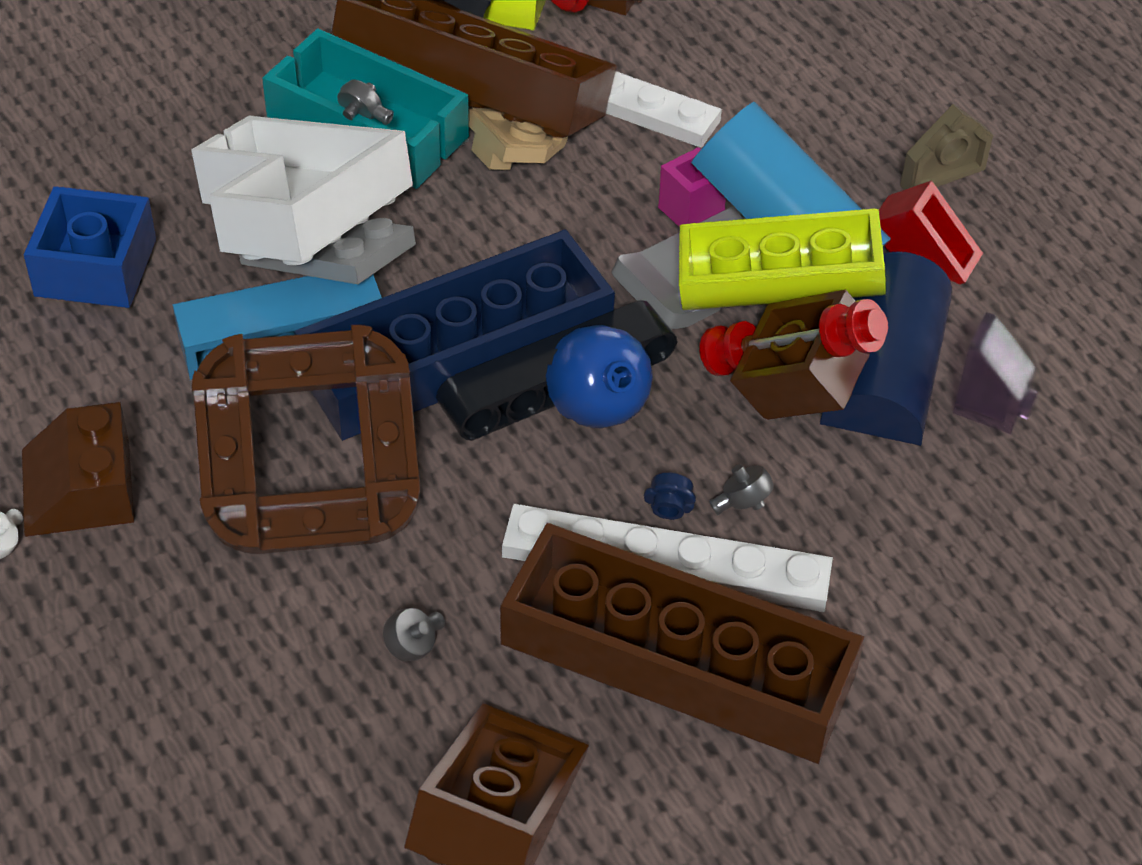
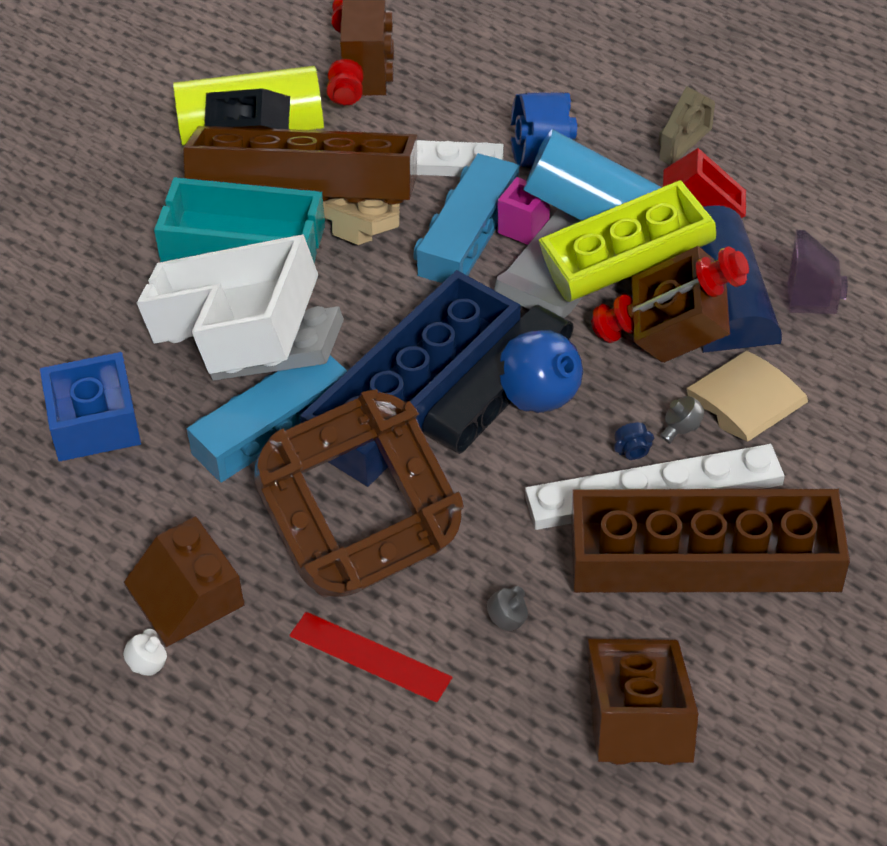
camera: 20 degrees left, 0 degrees up
(236, 632) = (371, 656): none -> red sticker
(362, 99) = (247, 221): flat silver piece -> none
(619, 183) = (466, 220): none -> dark azure brick
(775, 89) = (534, 118): none -> blue brick
(838, 491) = (748, 395): none -> tan slope

